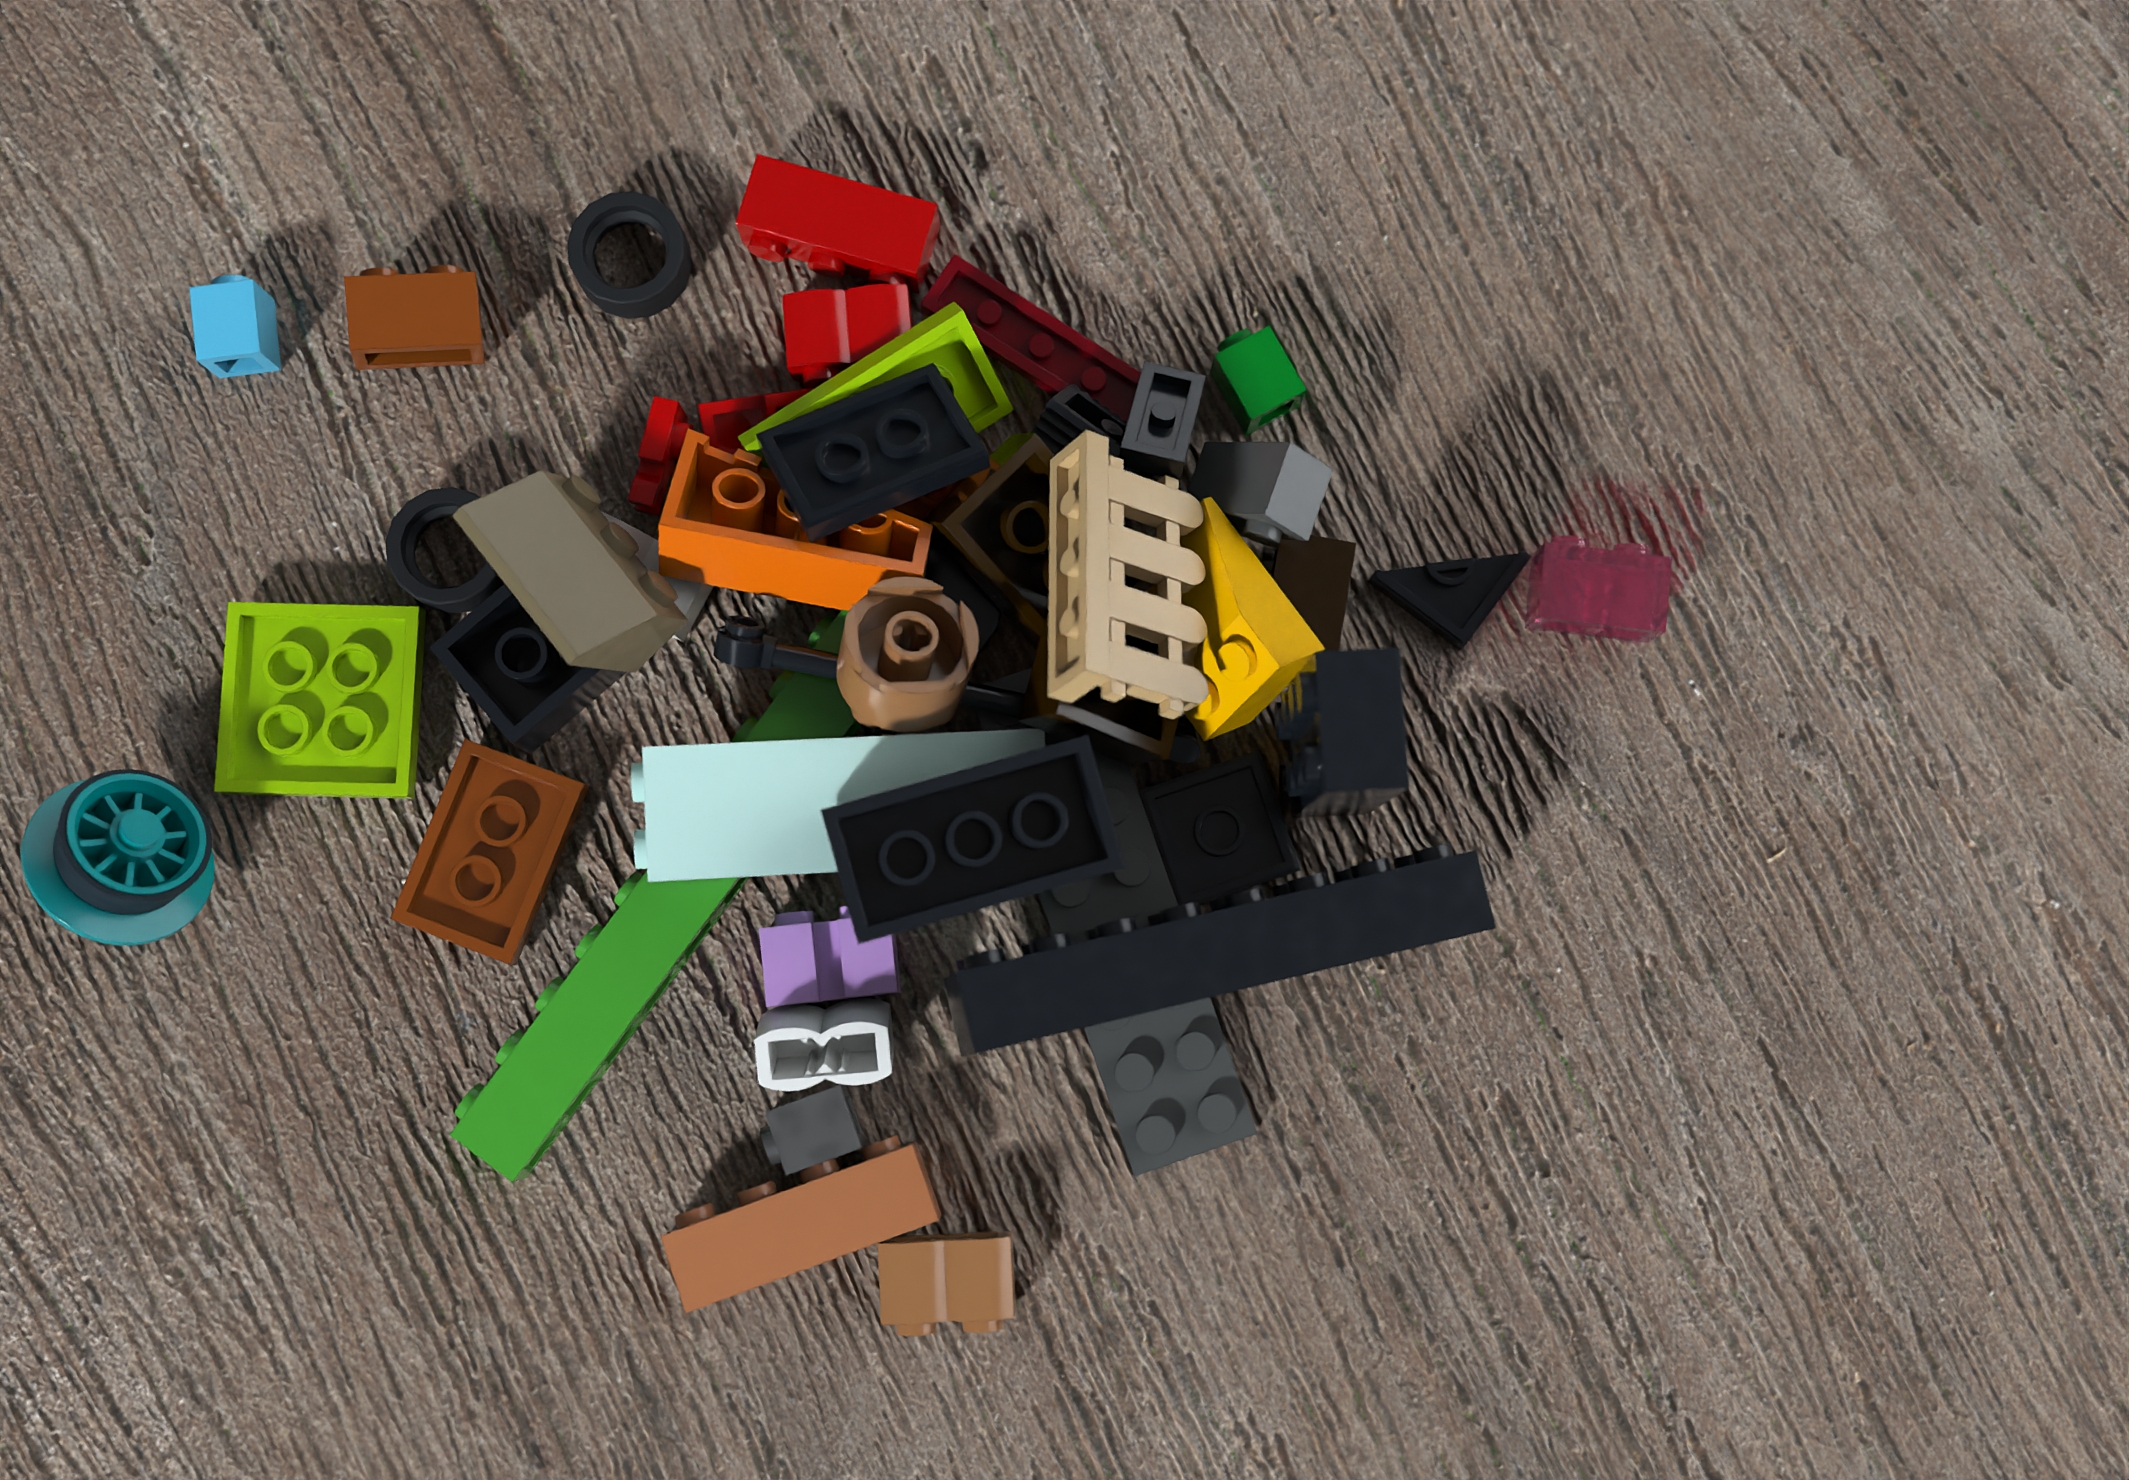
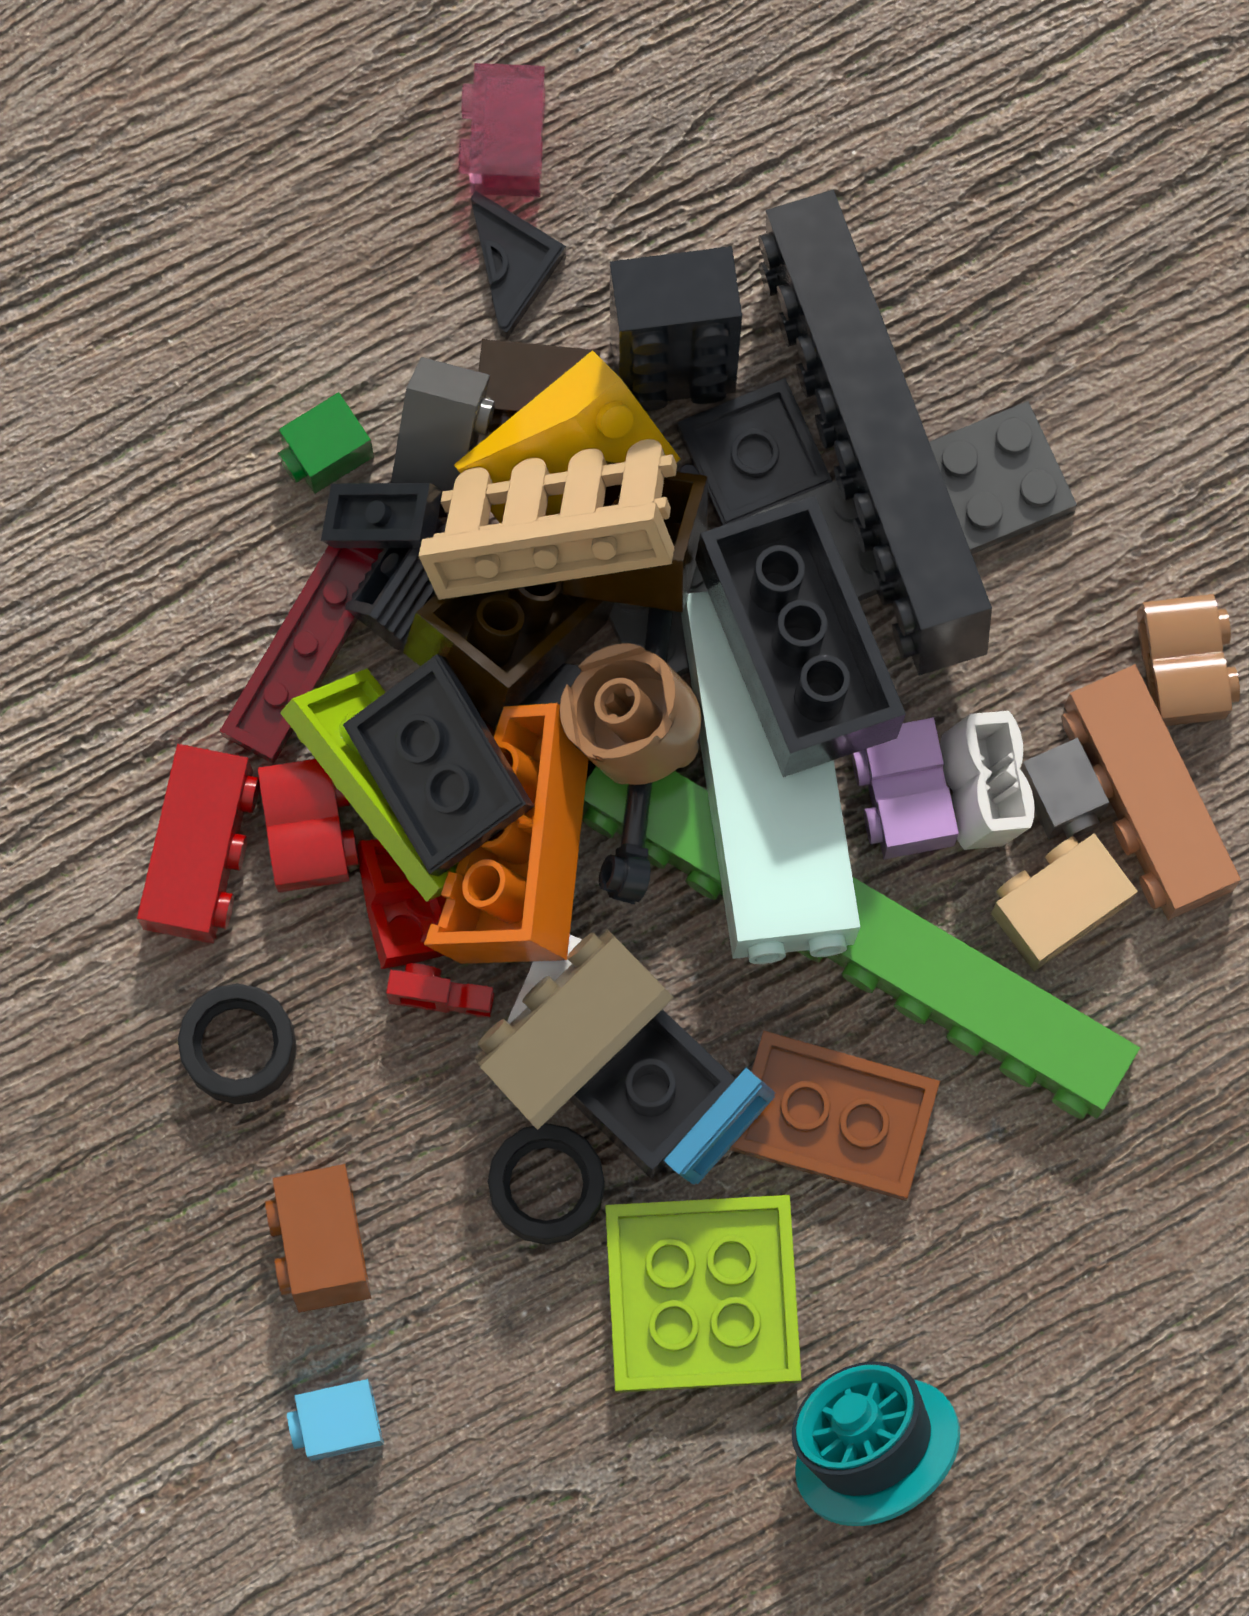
camera: 90 degrees left, 5 degrees down
(474, 725) = (720, 1127): none -> dark azure tile
(692, 1115) = (1062, 900): none -> tan brick

